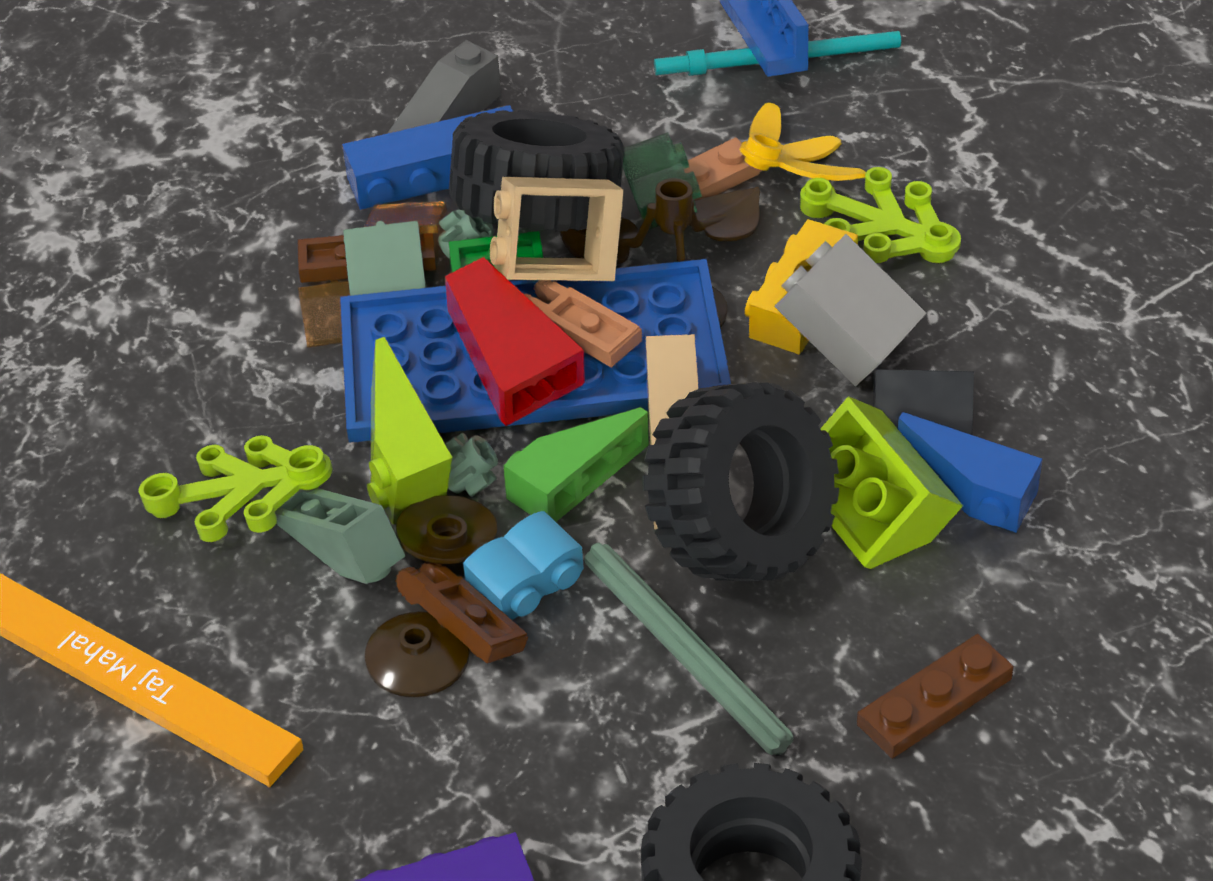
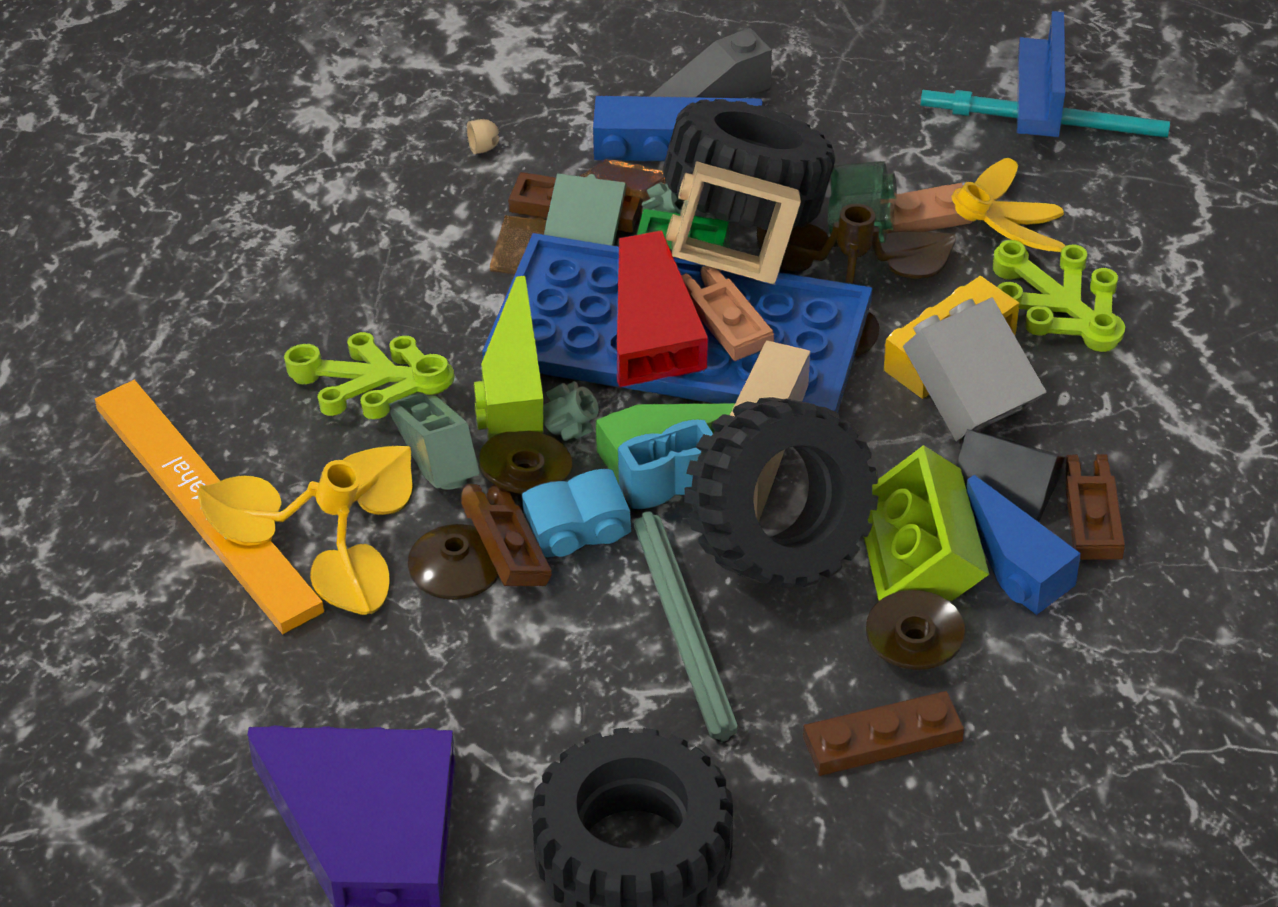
camera: 20 degrees right, 0 degrees up
(237, 214) = (482, 135): none -> tan hinge
(286, 597) = (348, 578): none -> yellow plant
(596, 488) = (657, 464): none -> dark azure brick
(918, 582) = (915, 629): none -> dark brown dish
(1021, 412) = (1094, 510): none -> reddish brown hinge

